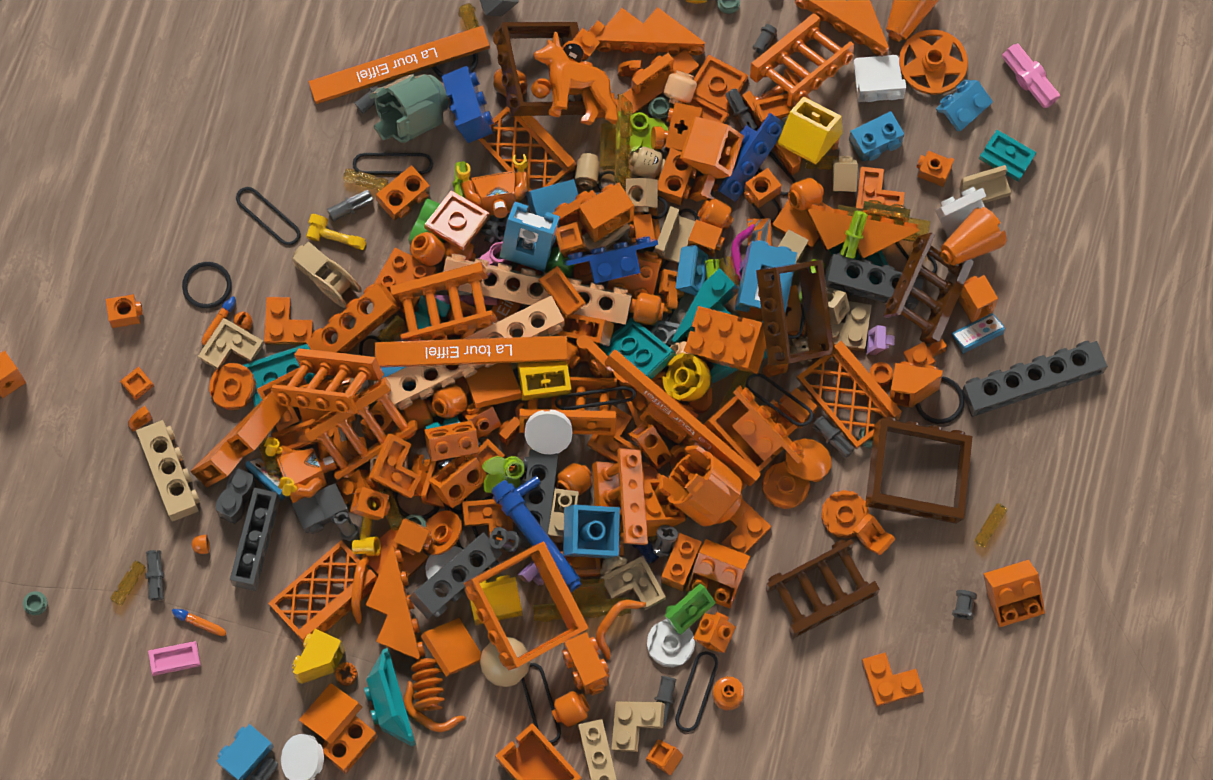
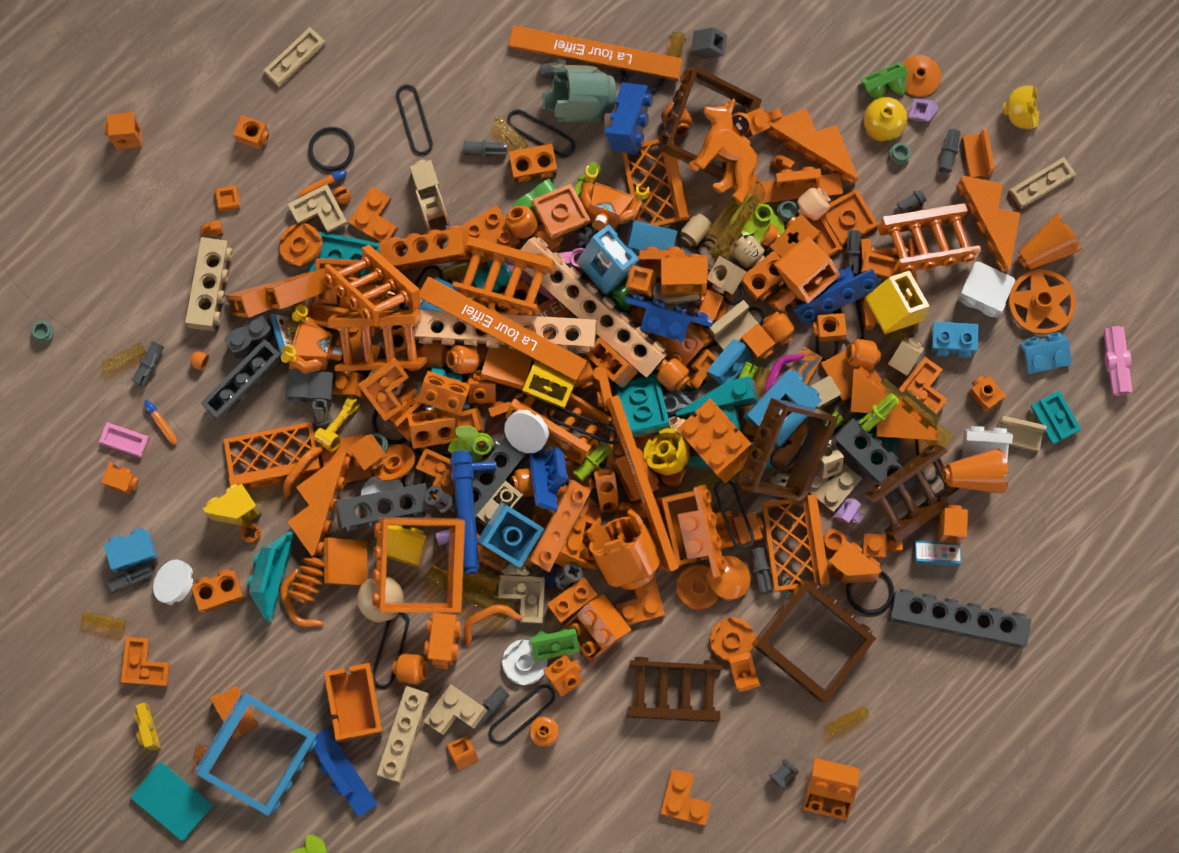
camera: 30 degrees right, 5 degrees up
(121, 221) = (294, 57): none -> tan tile
(193, 695) = (120, 479): none -> orange brick
(318, 229) = (447, 154): yellow brick -> none
(330, 713) = (217, 558): orange tile -> none
(360, 506) = (342, 399): orange brick -> none
(393, 514) = (365, 419): clear yellow axle -> none
(541, 88) = (692, 142): orange hinge -> none
(562, 291) = (607, 321): orange tile -> none
(593, 459) = (548, 476): none -> blue bracket
(623, 426) = (592, 462): none -> lime axle

